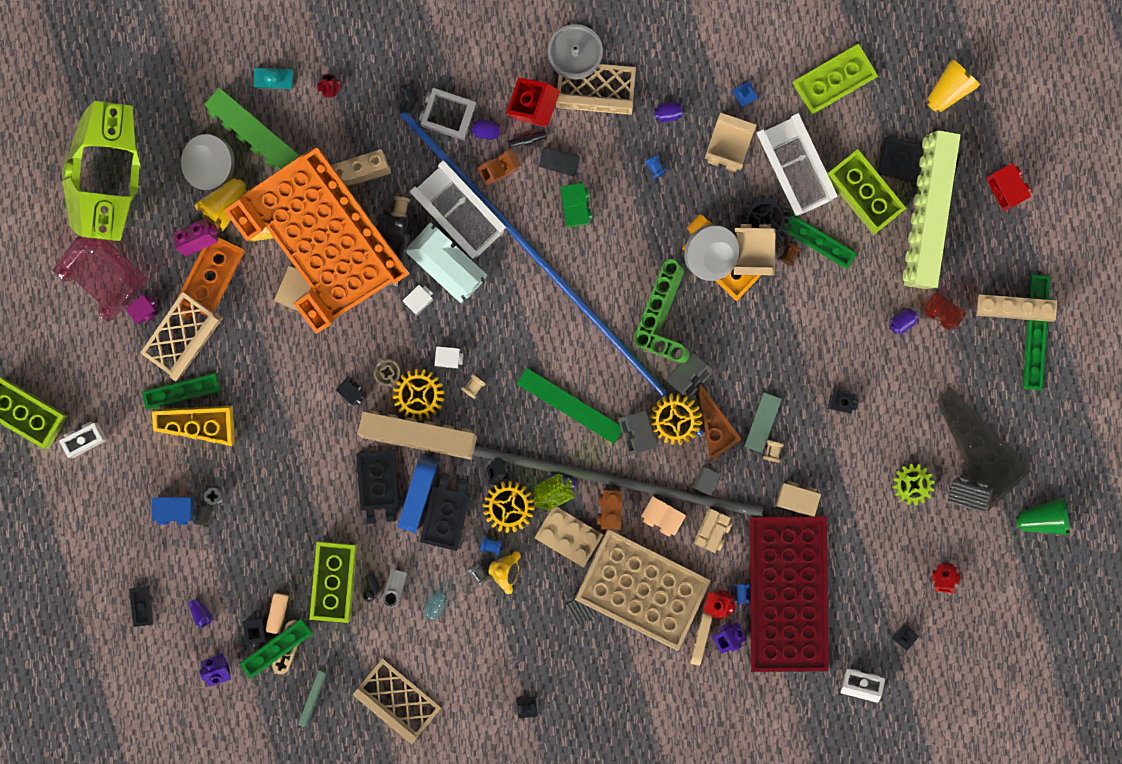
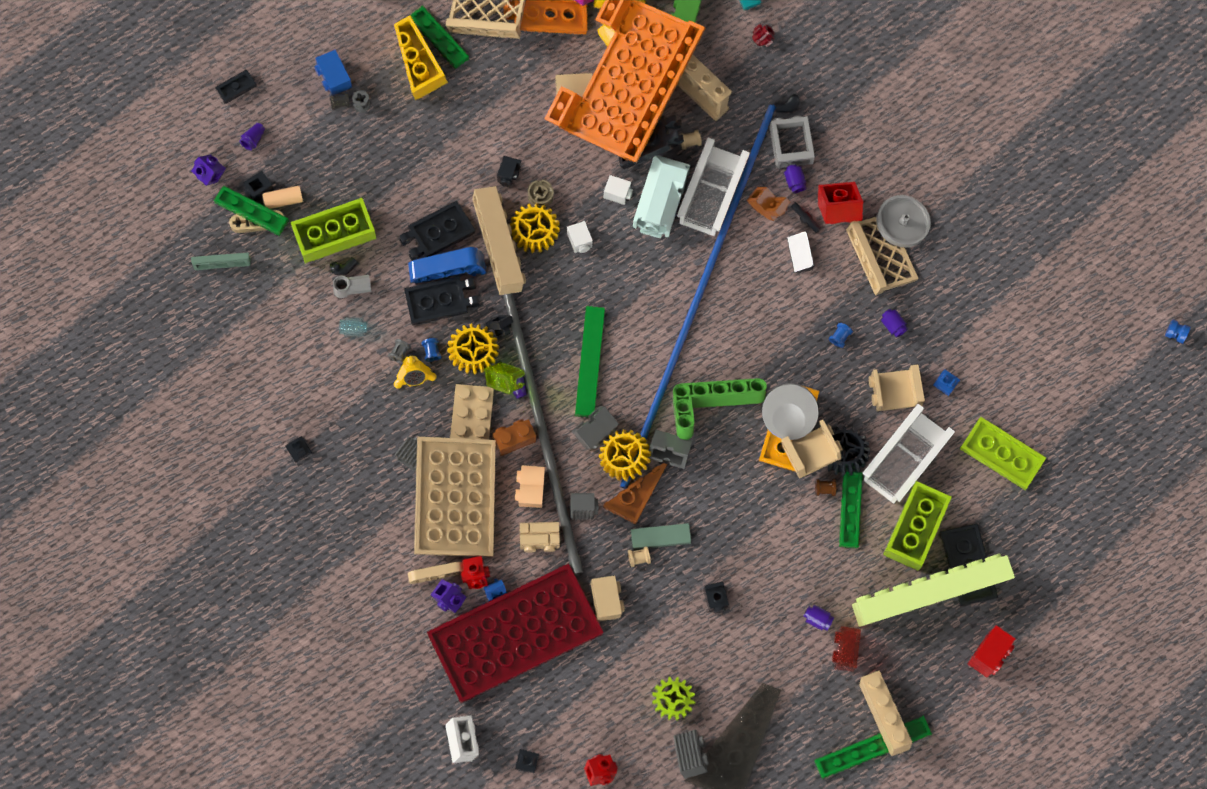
camera: 55 degrees right, 15 degrees down
(384, 713) = (235, 328): tan fence -> none
(473, 386) = (565, 270): tan bush -> none
(574, 205) = (773, 279): green brick -> none
(951, 87) = (1053, 557): yellow cone -> none

